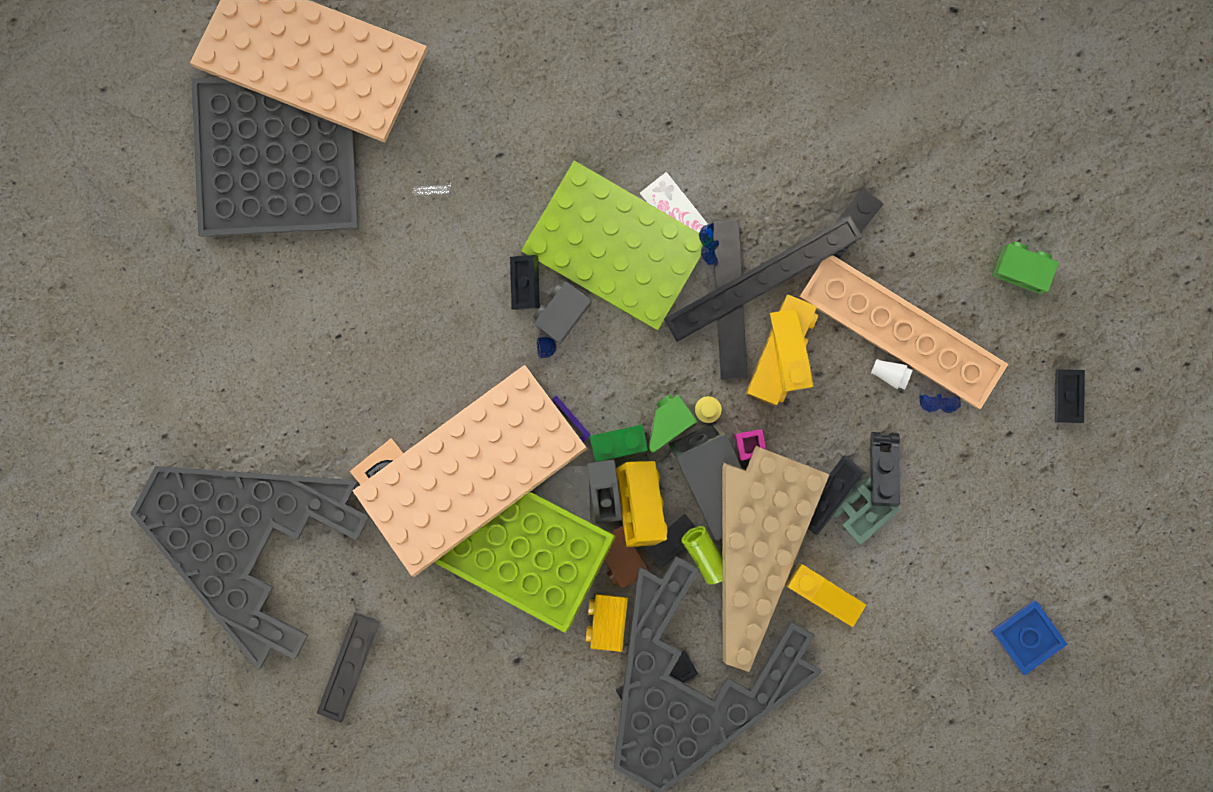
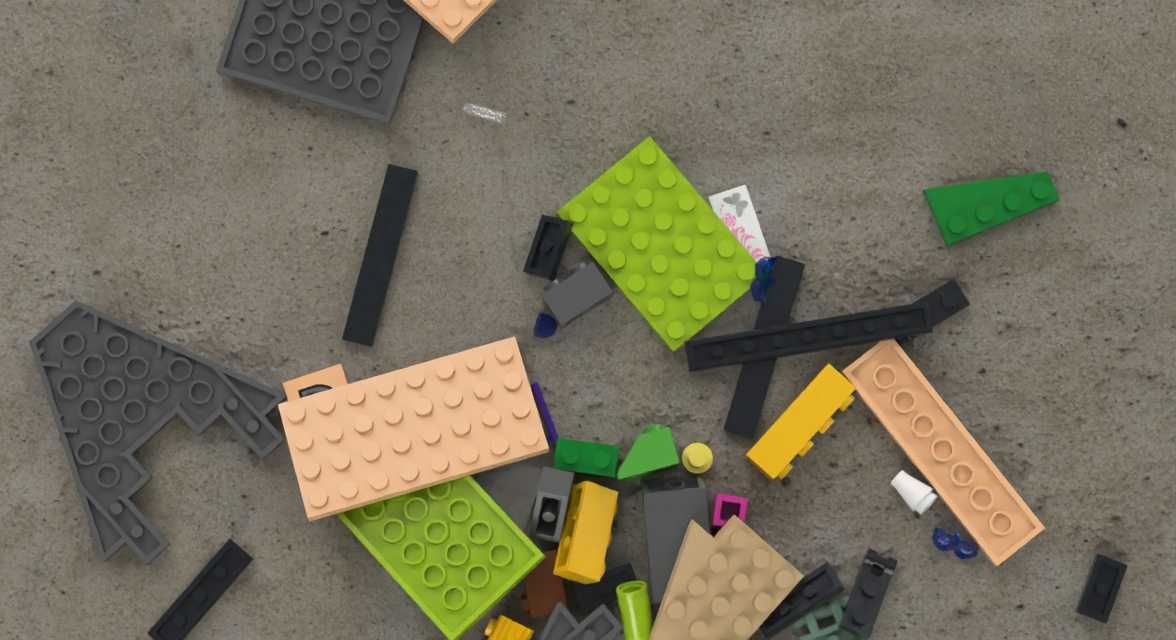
camera: 20 degrees right, 5 degrees down
(390, 338) = (380, 255): none -> black tile
(791, 351) = (809, 425): yellow slope -> none
(864, 119) = (982, 205): none -> green wing
(1025, 267) = (1101, 430): bright green brick -> none

